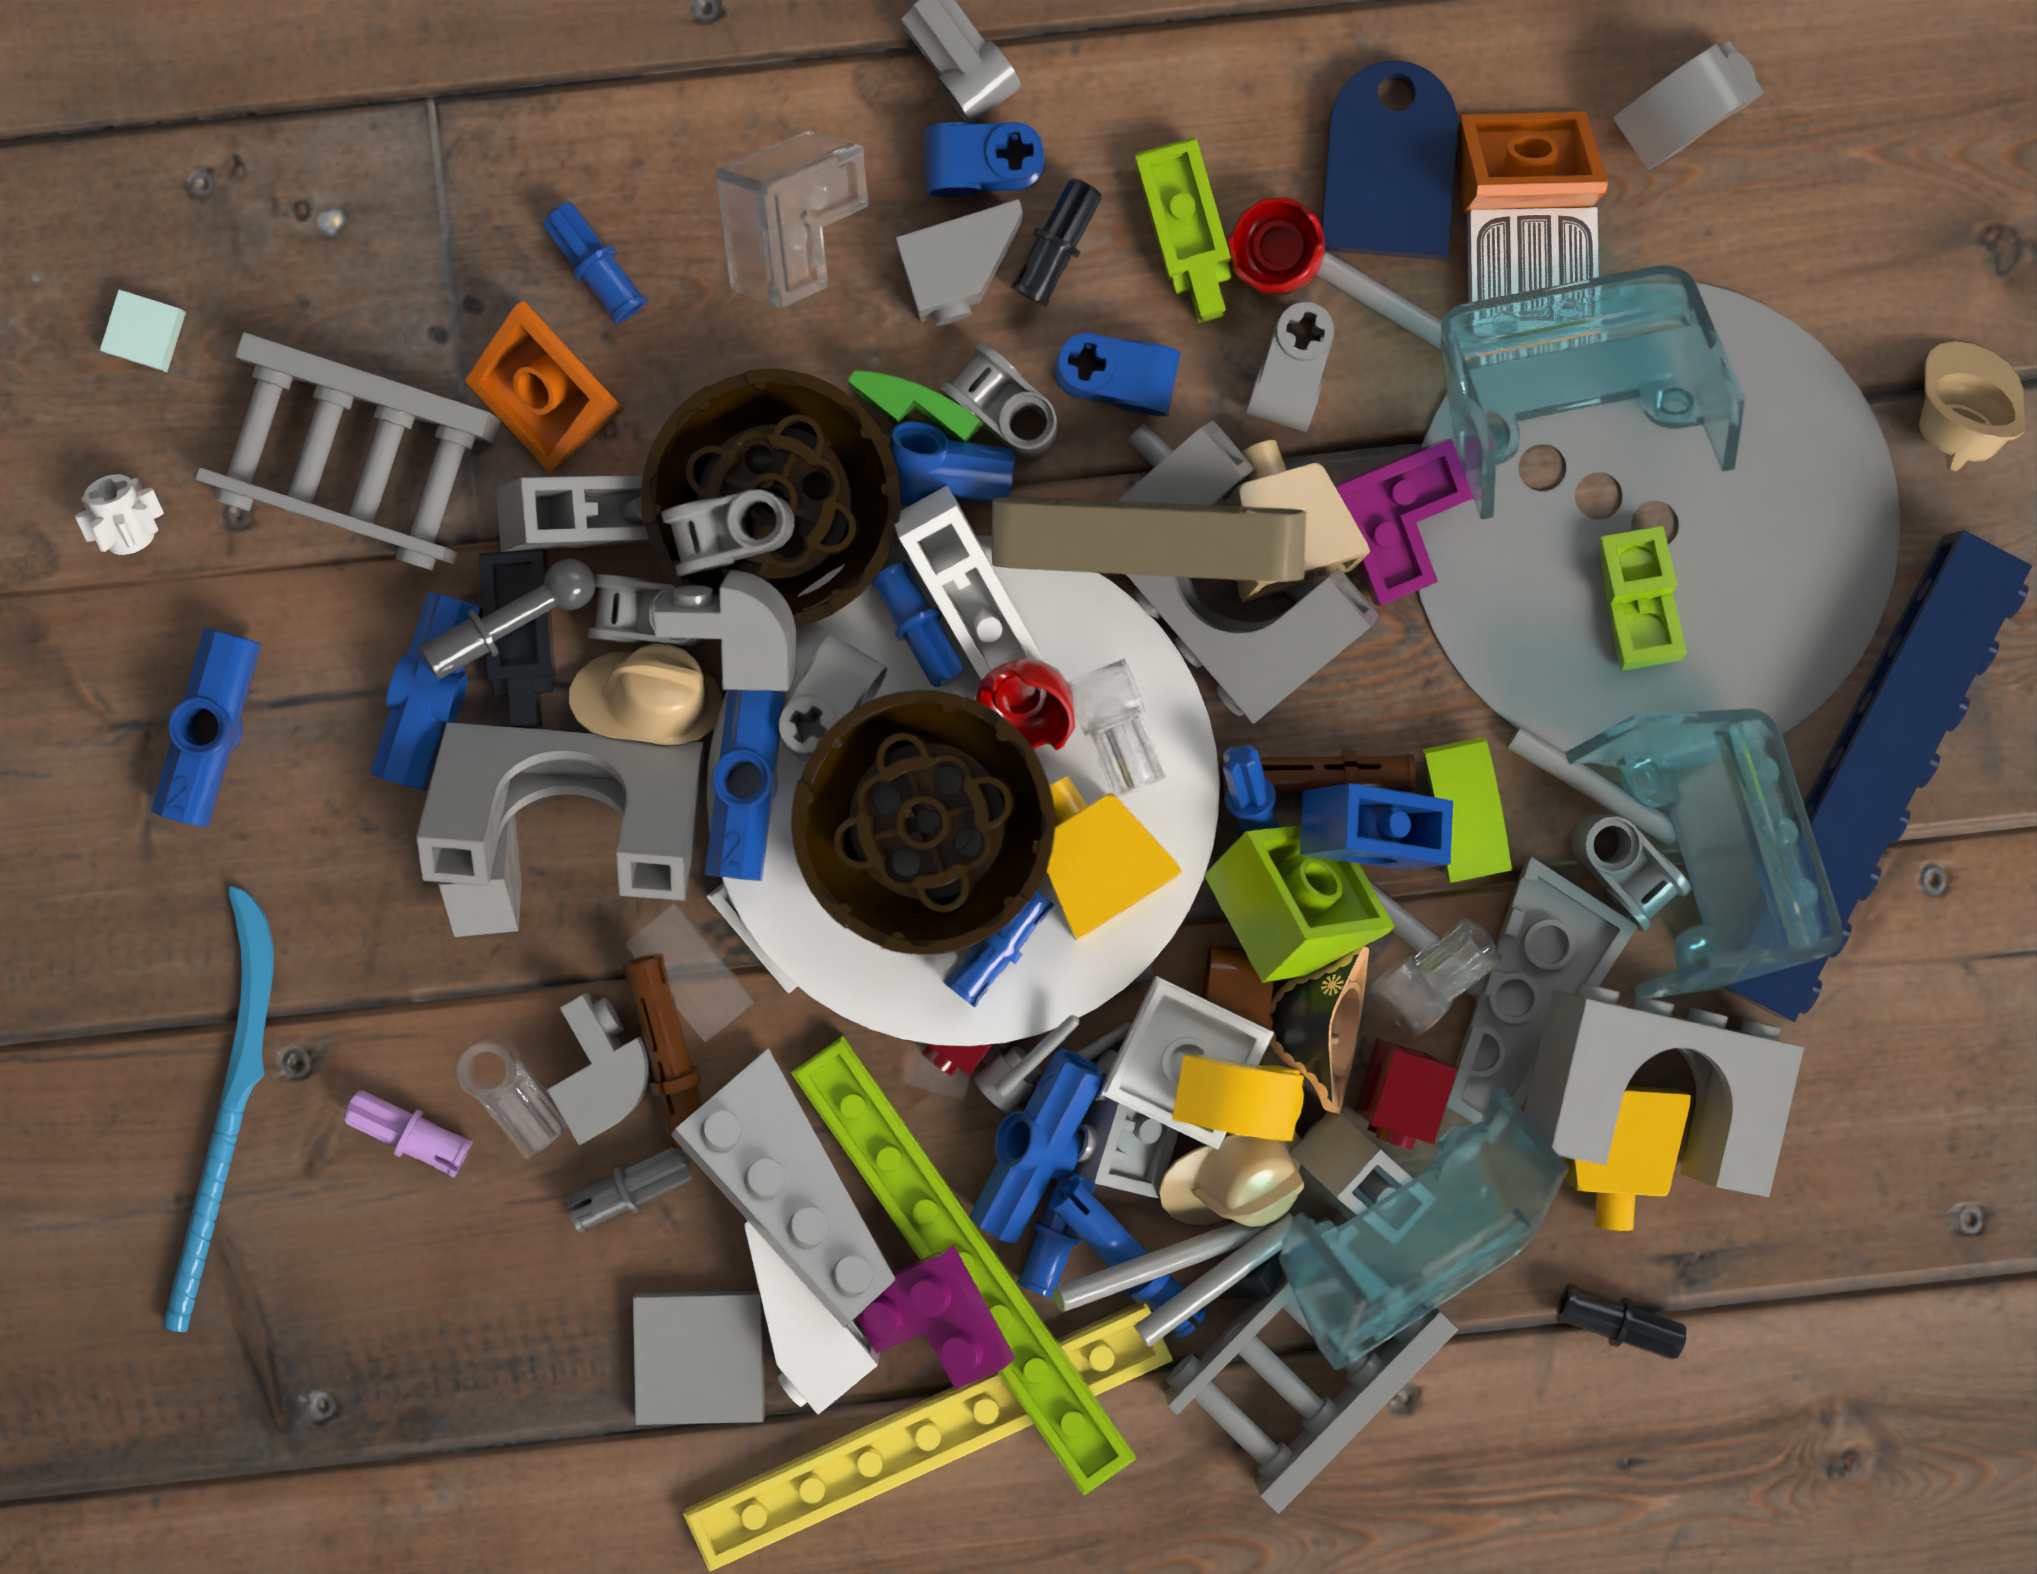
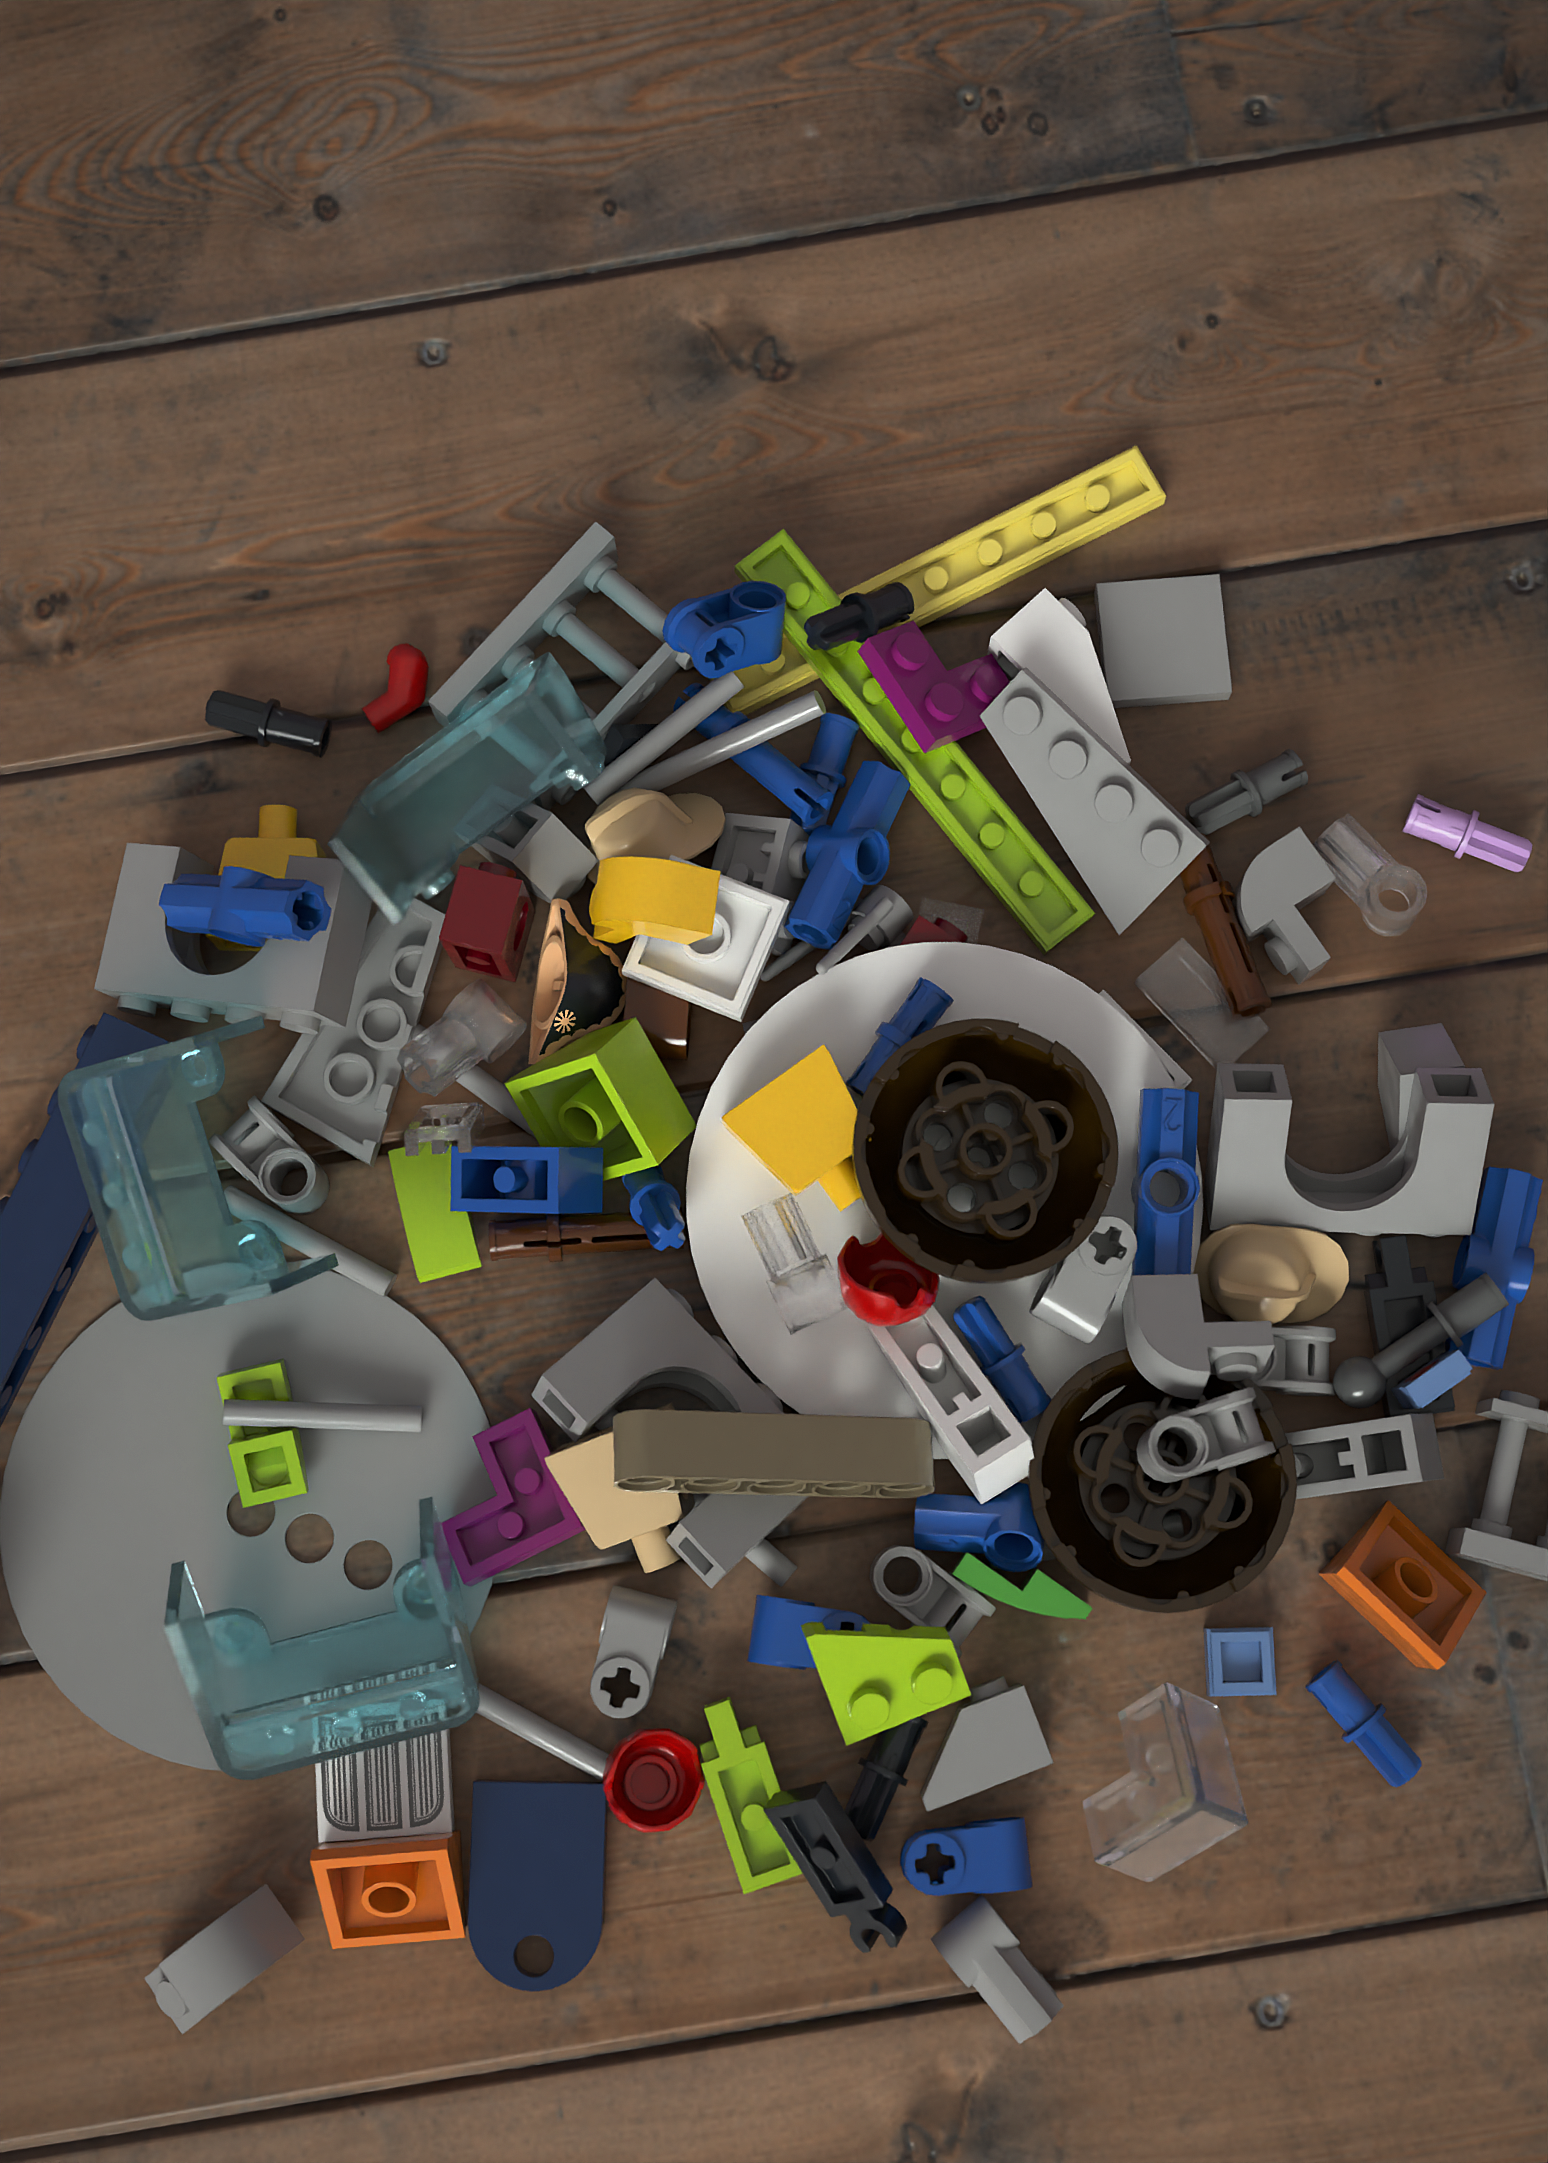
camera: 175 degrees left, 10 degrees down
(500, 578) = (1432, 1380): none -> medium blue tile
(707, 328) = (1239, 1661): none -> medium blue tile
(1011, 1392) = (859, 617): none -> black axle
(1051, 327) = (884, 1674): none -> lime wing
(1107, 159) = (836, 1862): none -> black plate
(1140, 1384) = (729, 628): none -> blue piece
(1479, 1352) = (405, 687): none -> red arm
(1481, 877) = (466, 1131): none -> clear tile
(1584, 610) = (322, 1415): none -> light grey bar
(1652, 1111) = (245, 906): none -> blue piece

